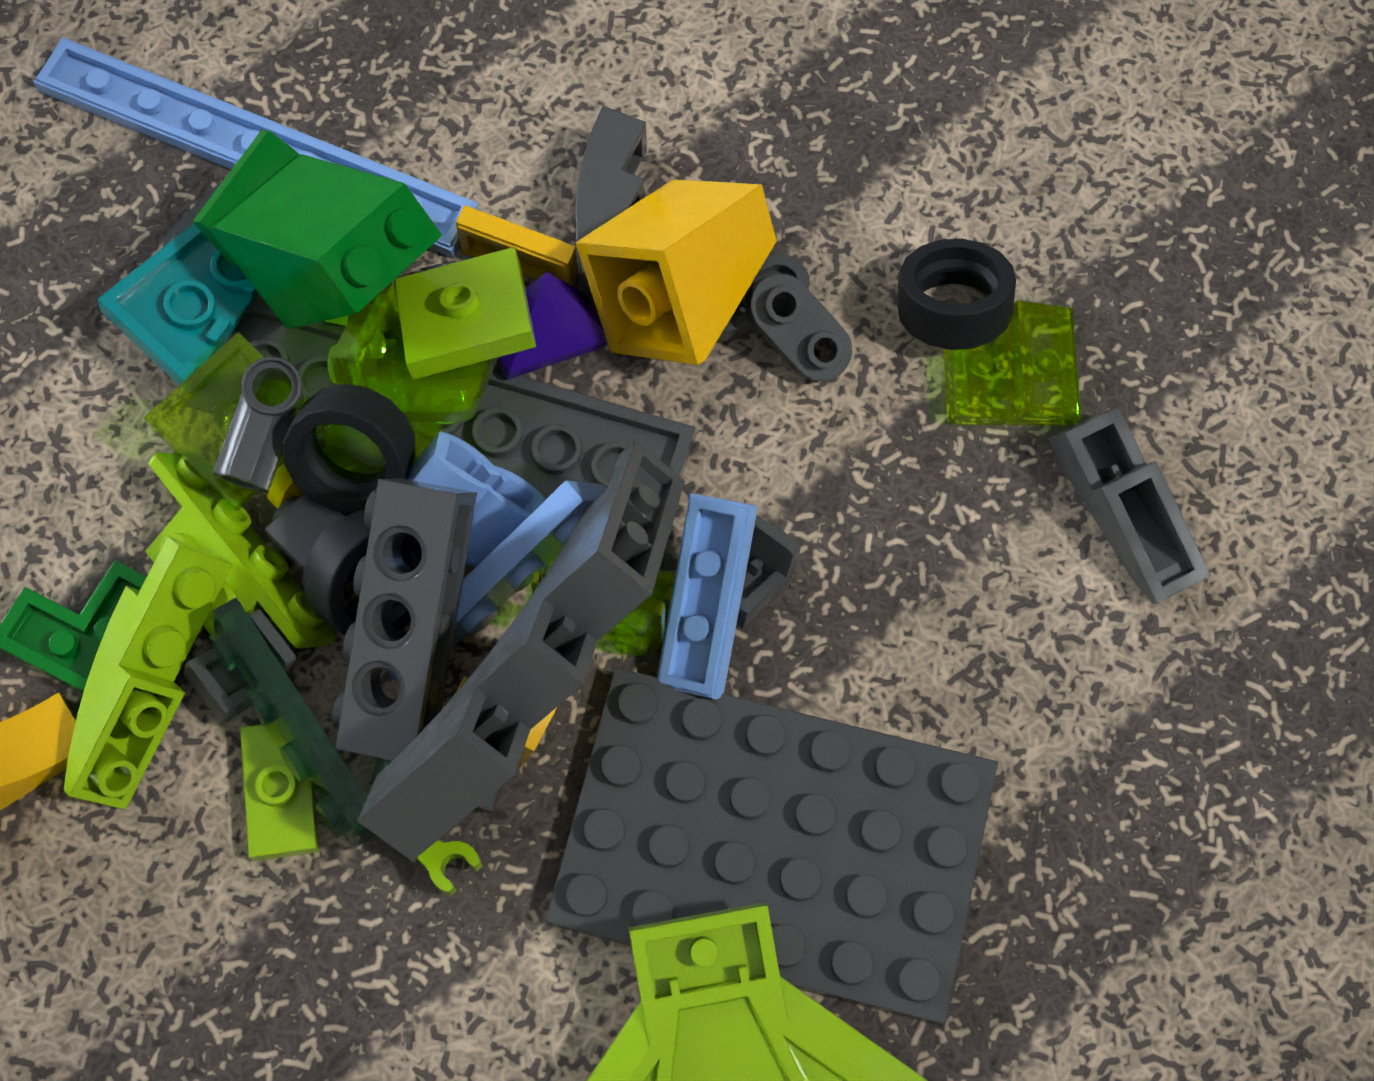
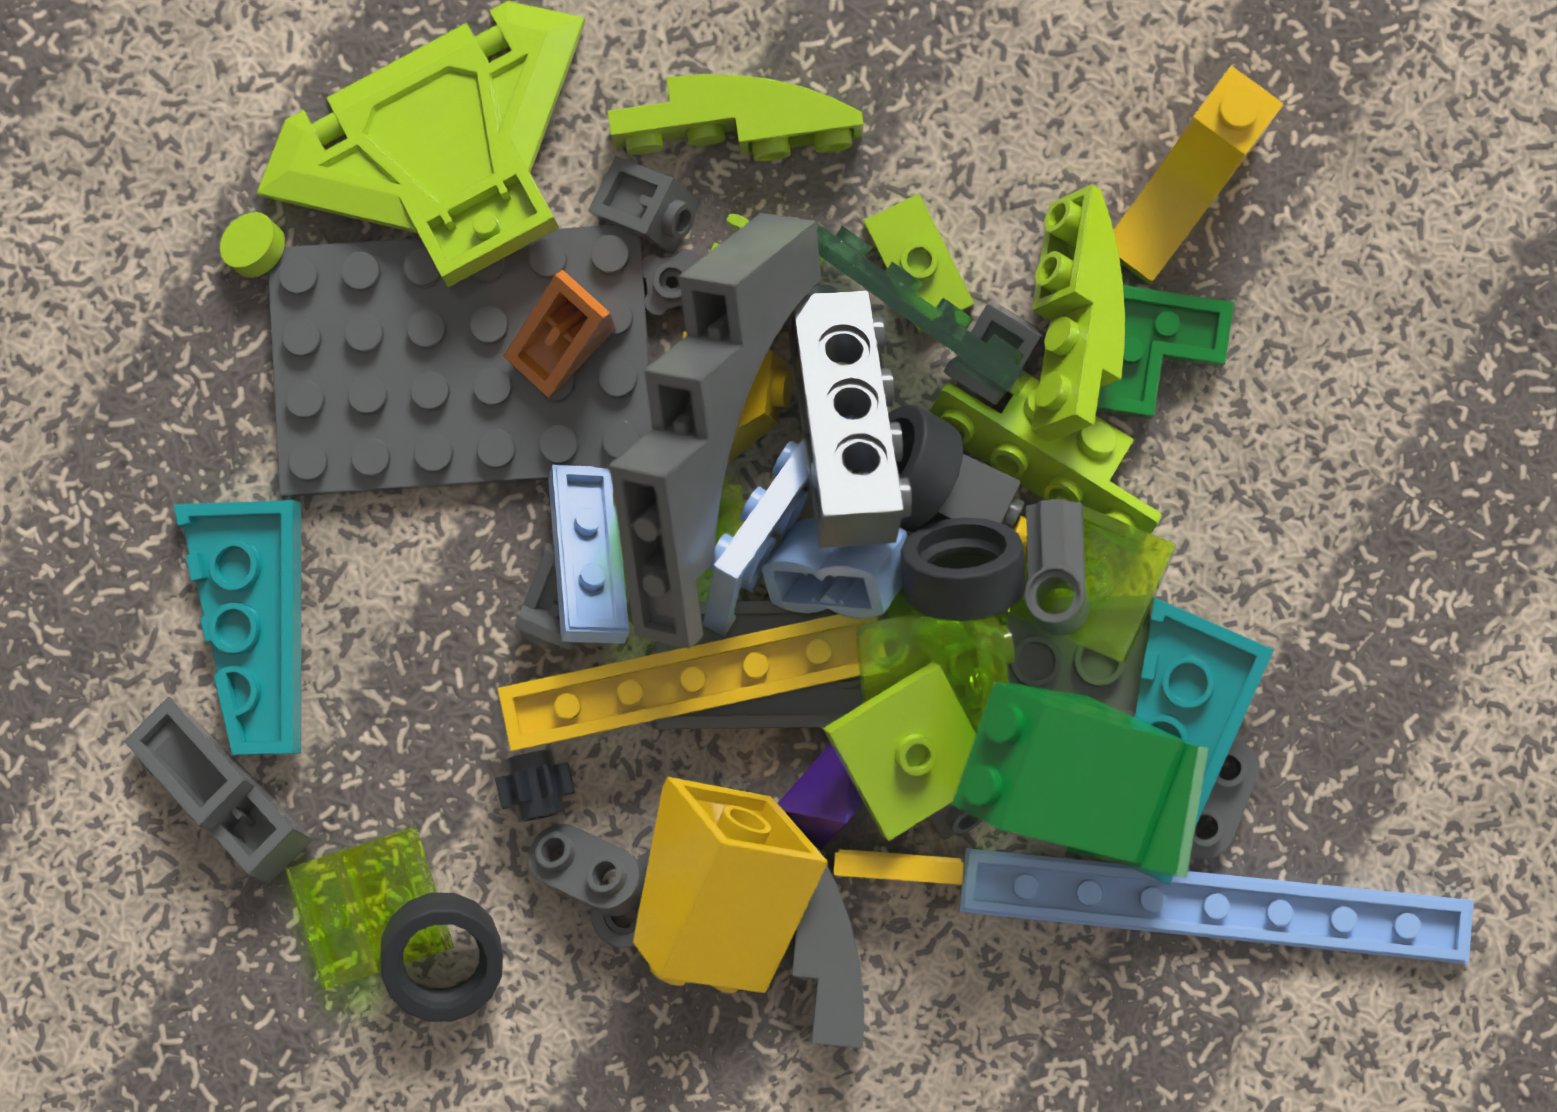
camera: 170 degrees right, 15 degrees up
(378, 993) = (763, 111): none -> lime slope
(521, 833) = (657, 272): none -> dark grey plate
(533, 938) = (645, 204): none -> dark grey bracket
(663, 813) = (559, 334): none -> orange slope
(698, 450) = (681, 681): none -> yellow plate
(824, 412) = (535, 785): none -> black gear
(960, 1032) = (252, 244): none -> lime tile
(1051, 673) = (251, 607): none -> teal wing

